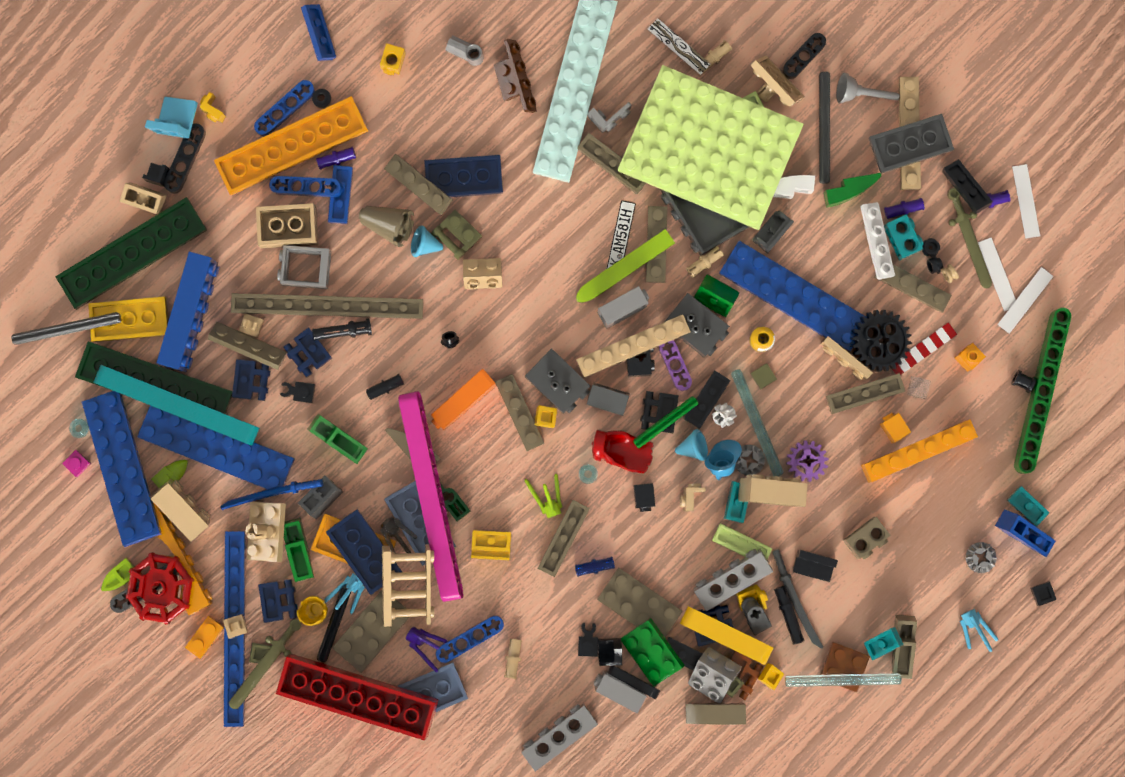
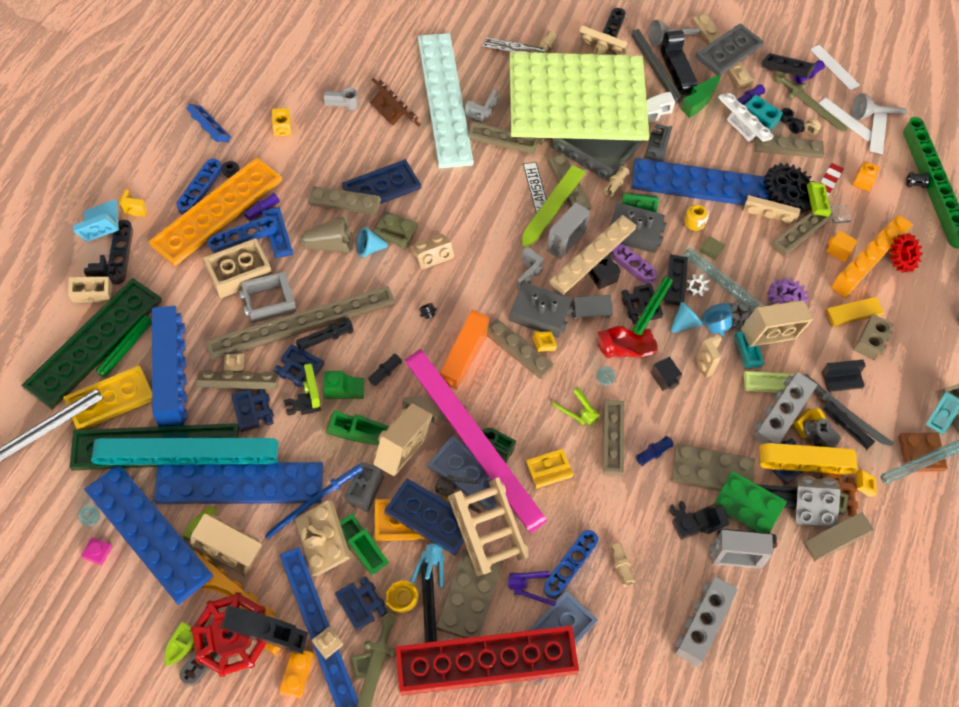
camera: 25 degrees left, 25 degrees down
(158, 267) = (124, 346): none -> green axle
(184, 603) = (264, 629): none -> black slope
(307, 383) = (310, 386): none -> lime plate
(340, 389) = (342, 386): none -> green arch
(366, 471) = (402, 439): none -> tan brick
(572, 322) = (533, 262): none -> light grey bracket
(847, 137) = (677, 61): none -> black beam
(866, 501) = (854, 311): none -> yellow tile
(899, 368) = (819, 199): none -> lime plate
(953, 463) = (905, 253): none -> red gear
(1021, 272) = (864, 106): none -> light grey piece

